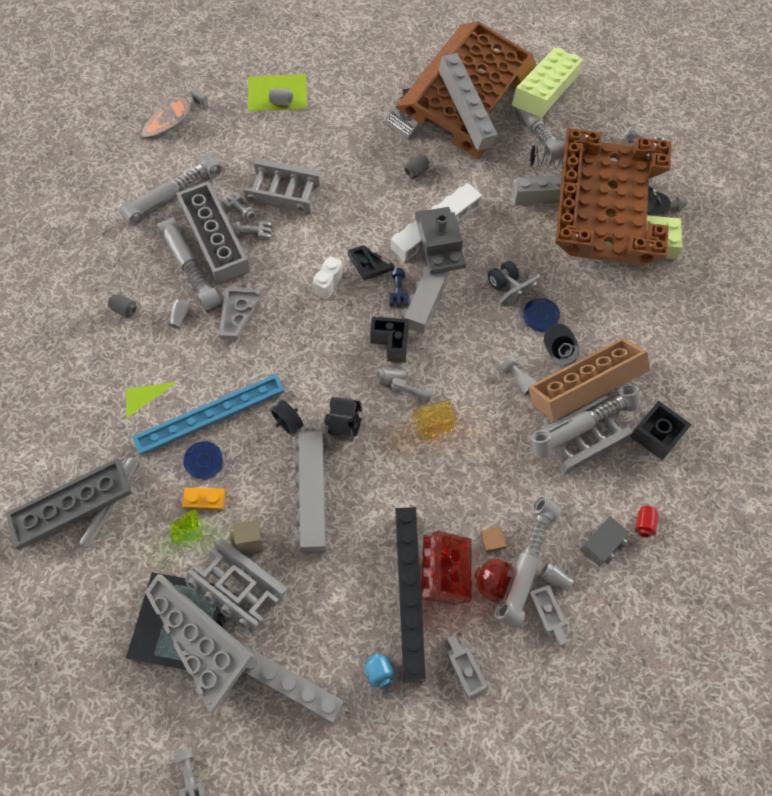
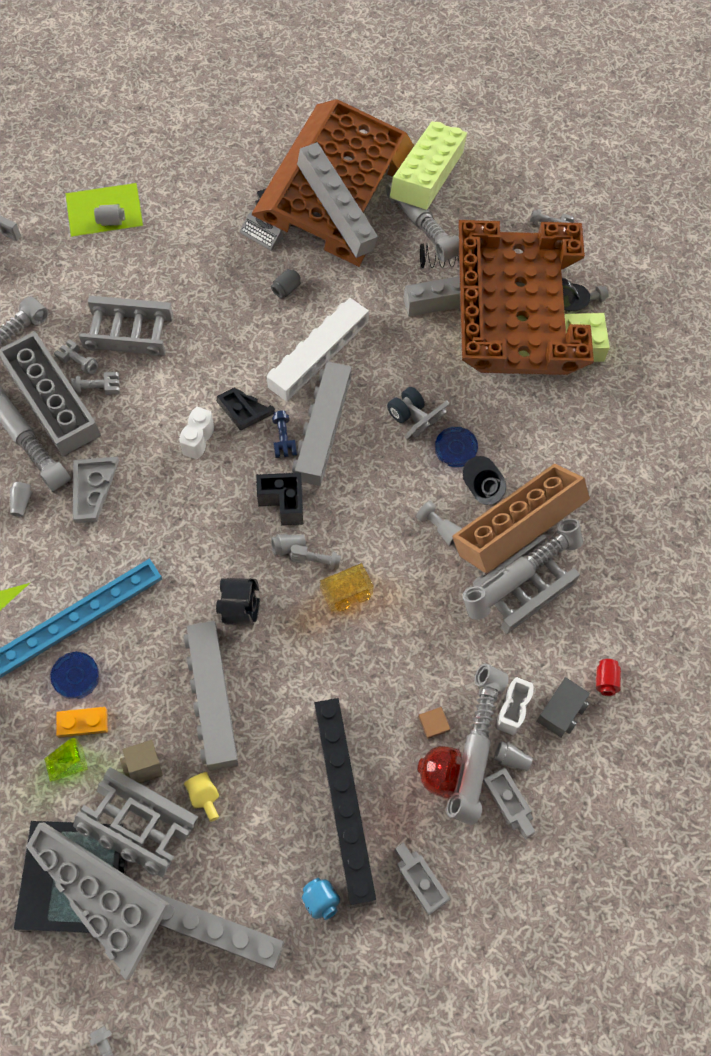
camera: 10 degrees left, 0 degrees up
(286, 417) = (169, 610): black wheel -> none
(294, 571) = (203, 794): none -> light yellow piece
(441, 239) = (326, 371): dark grey brick -> none
(446, 568) = (384, 765): clear red brick -> none
(563, 534) = (515, 706): none -> white brick
(660, 430) = (611, 568): black brick -> none

